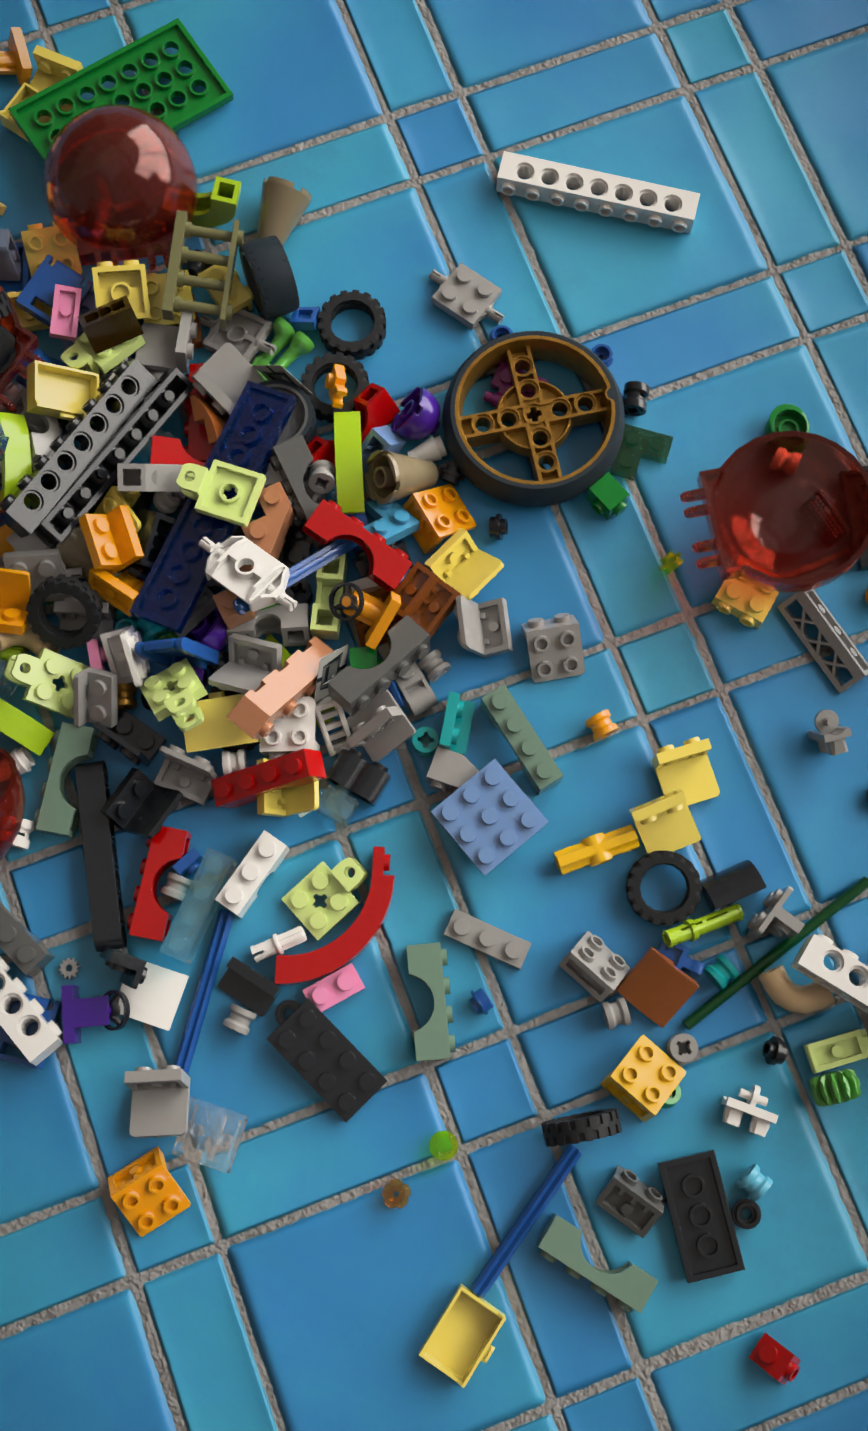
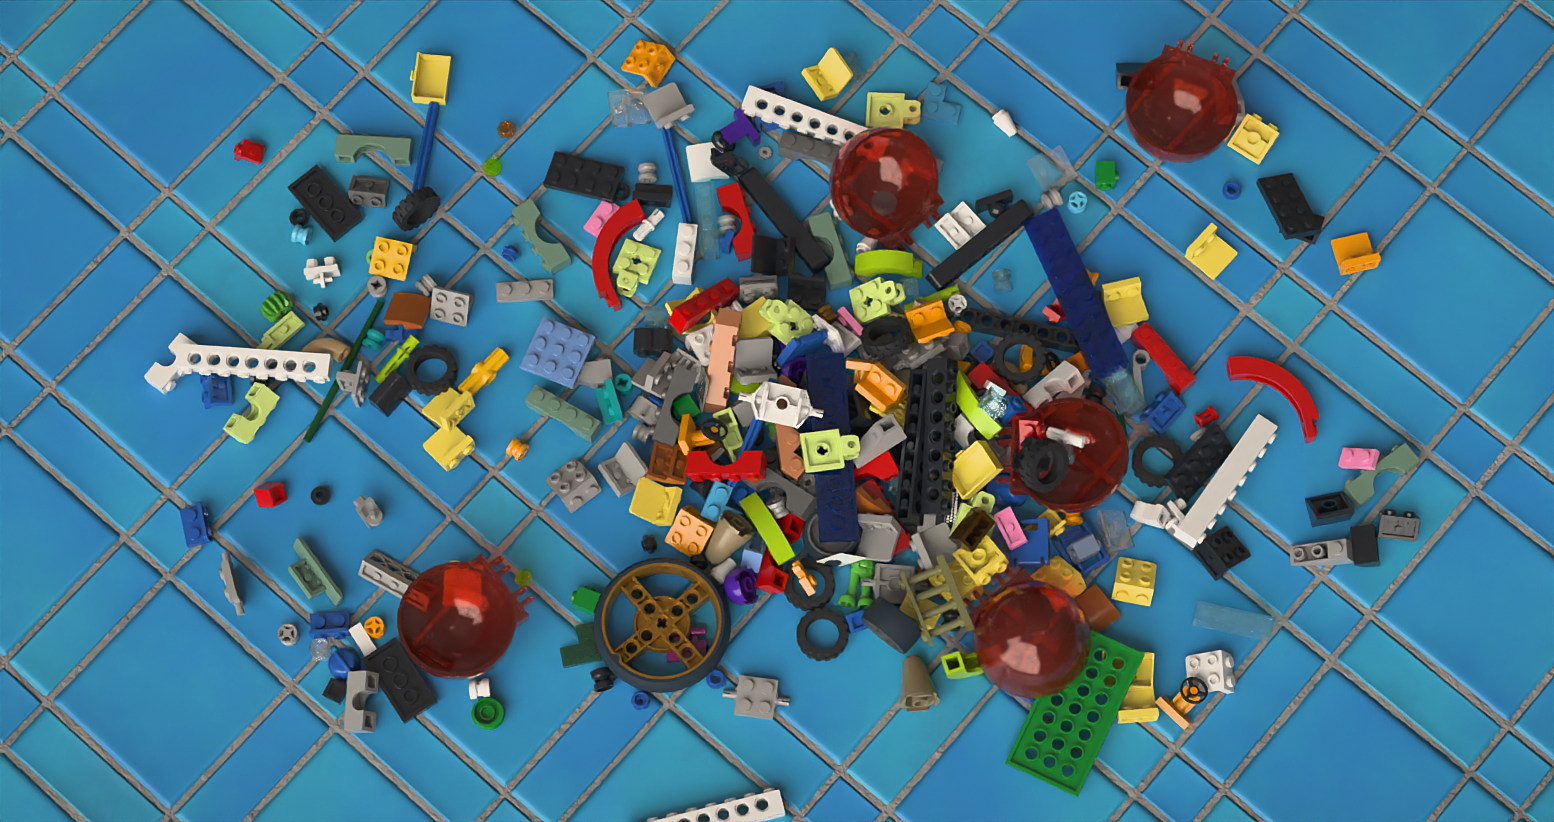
camera: 155 degrees right, 5 degrees down
(28, 202) = (1098, 608): none -> dark orange slope
(95, 697) = (839, 301): light grey bracket -> none

